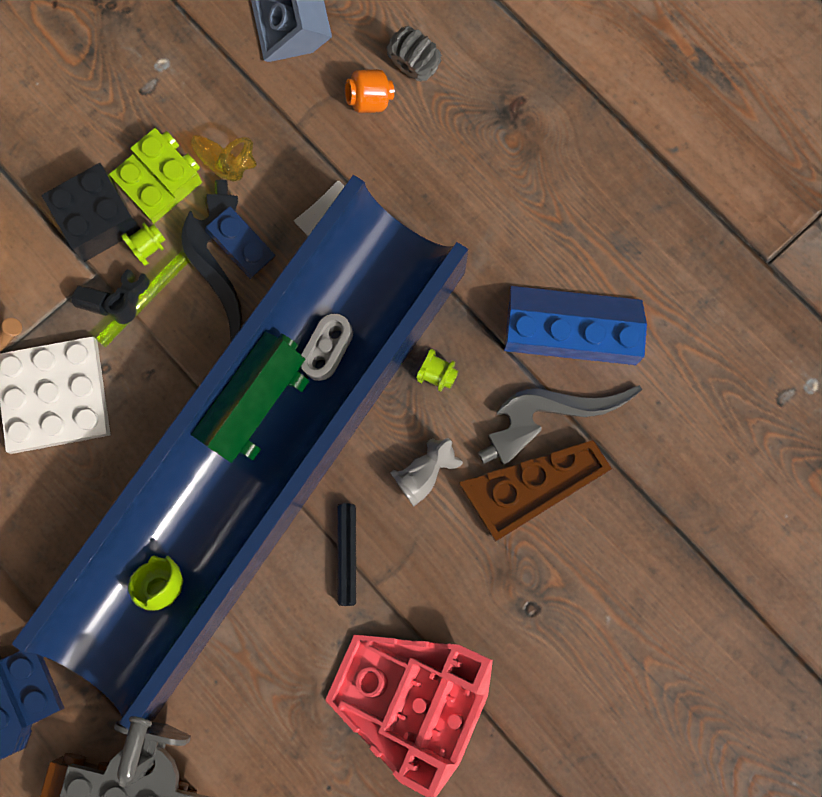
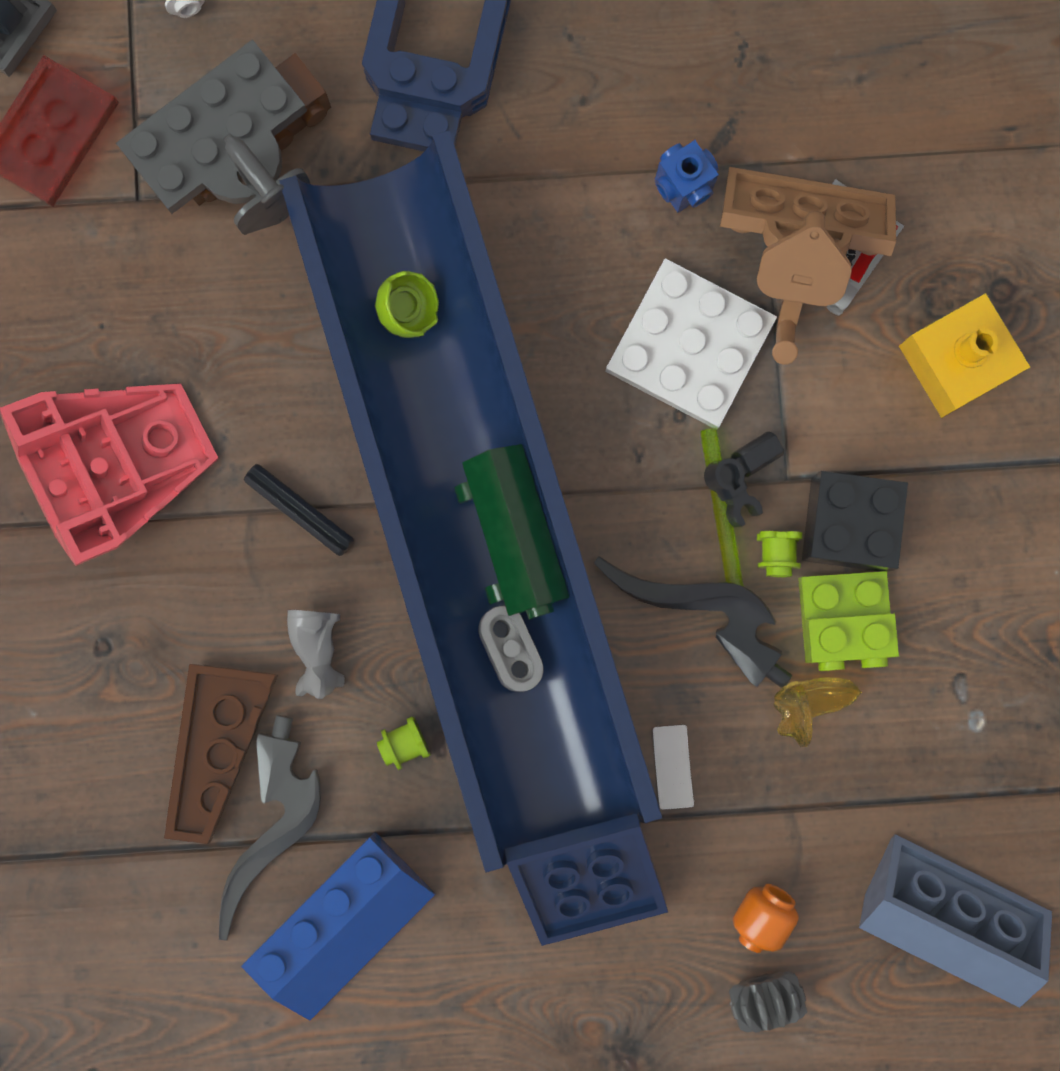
camera: 125 degrees right, 5 degrees up
(239, 242) = (701, 649): dark blue plate -> none
(426, 198) = (587, 879): none -> dark blue plate

